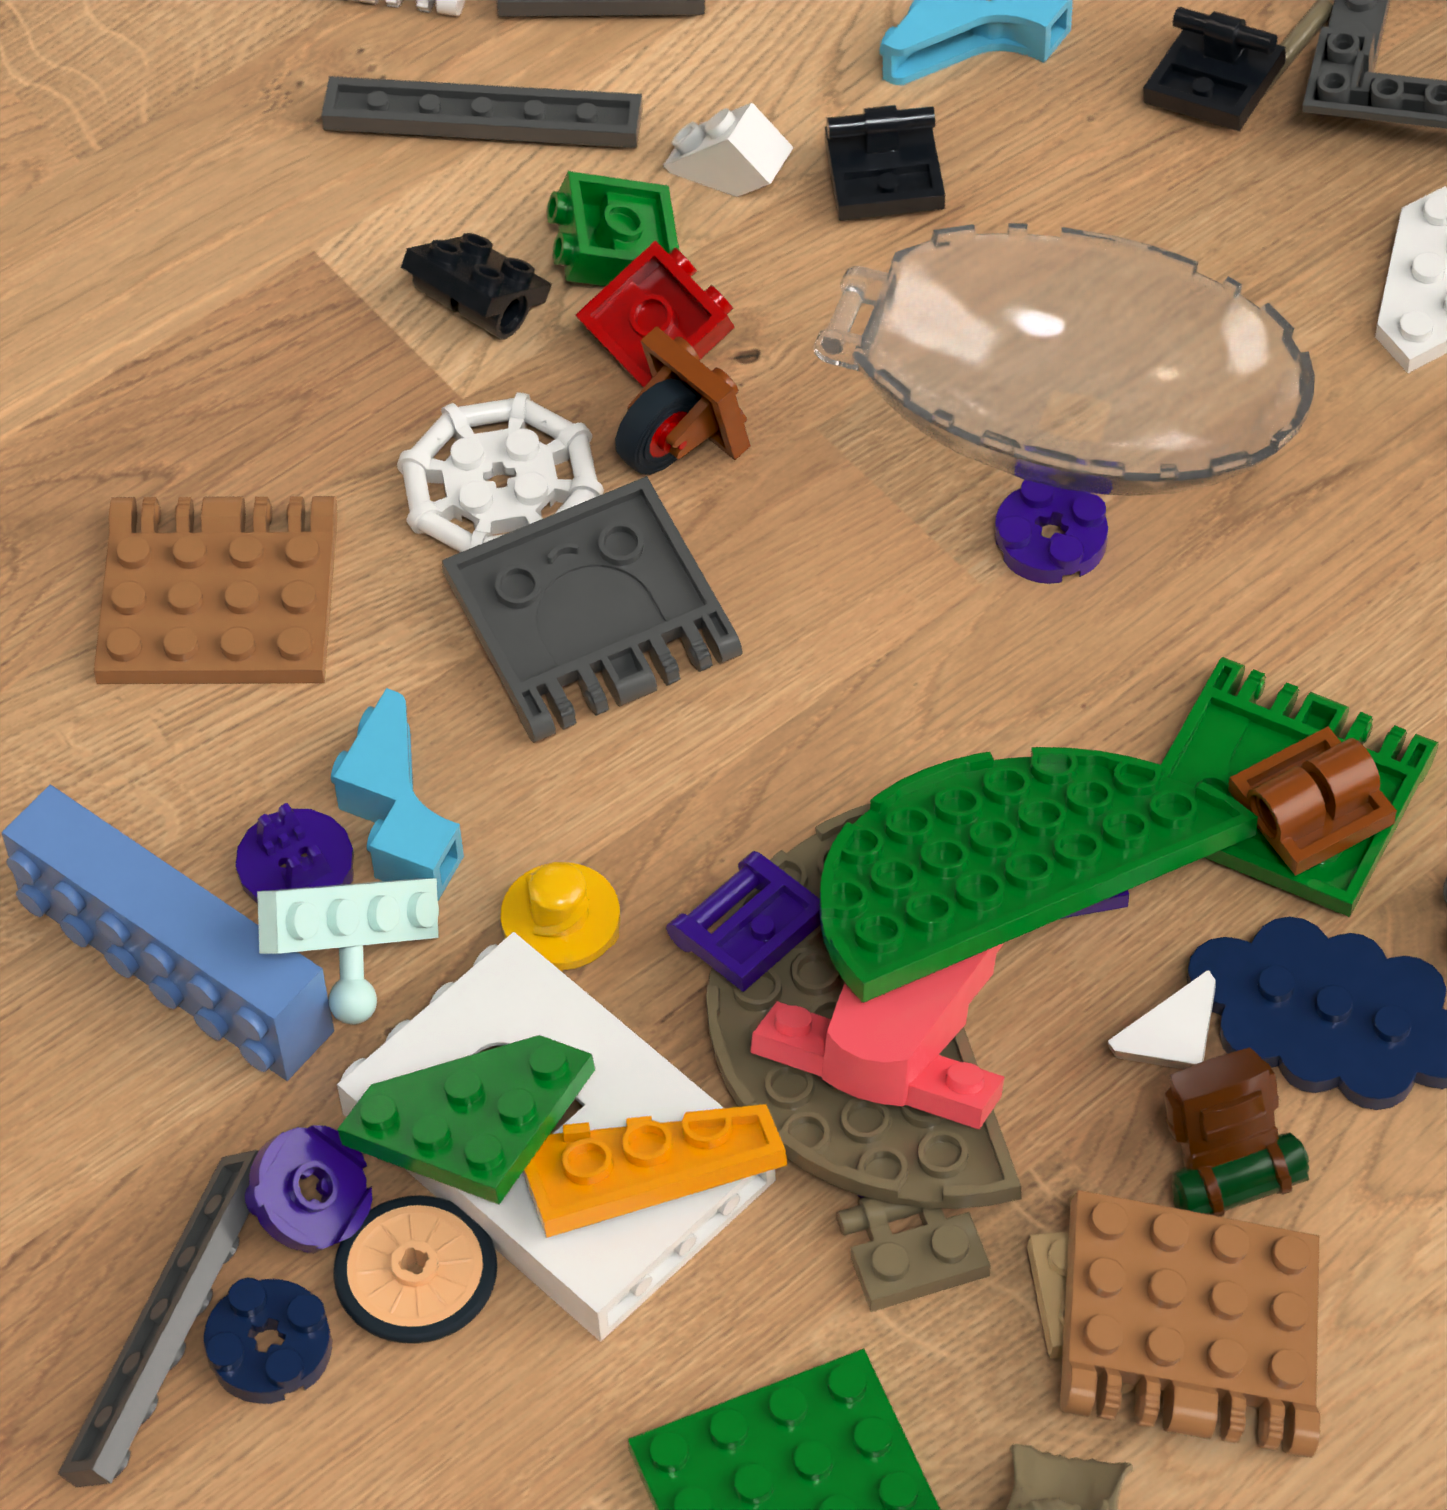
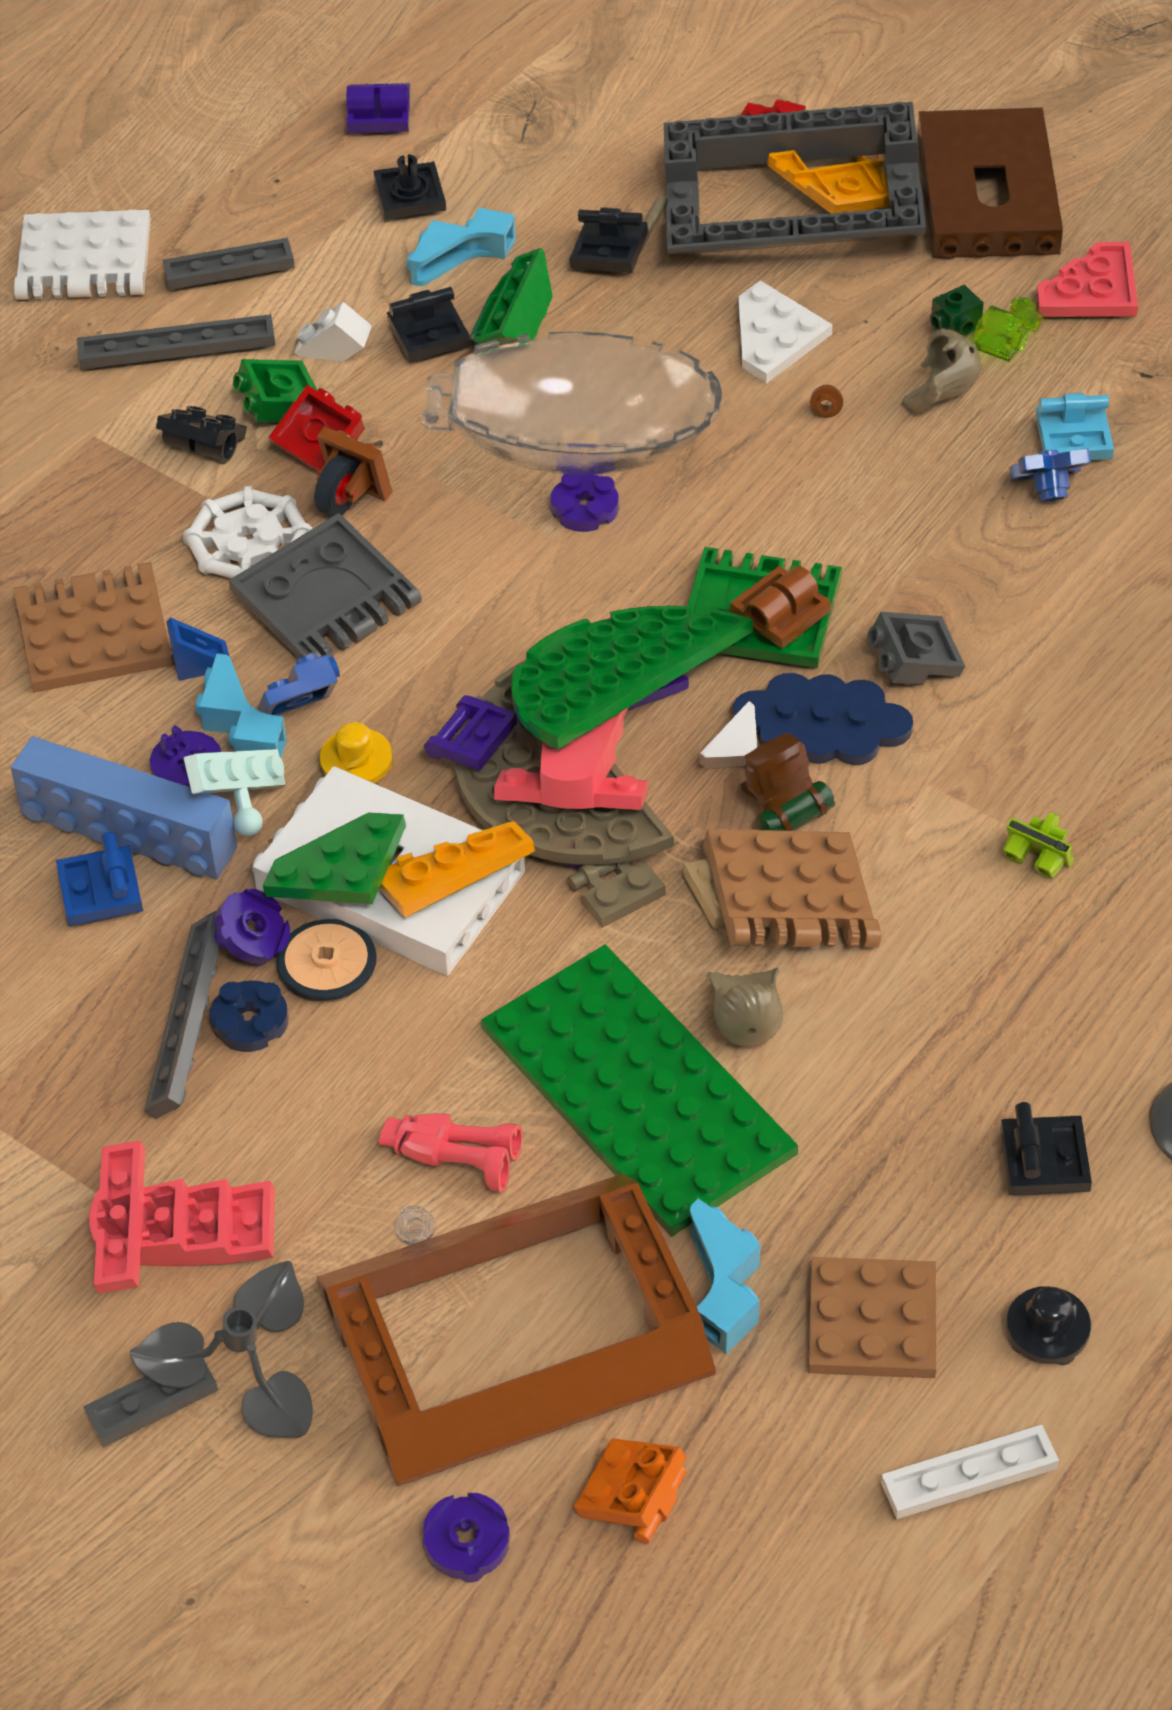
camera: 15 degrees left, 5 degrees down
(99, 1052) = (99, 883): none -> blue plate
(359, 668) = (193, 649): none -> blue slope
(514, 769) = (307, 683): none -> blue plate
(1032, 154) = (516, 302): none -> green wedge

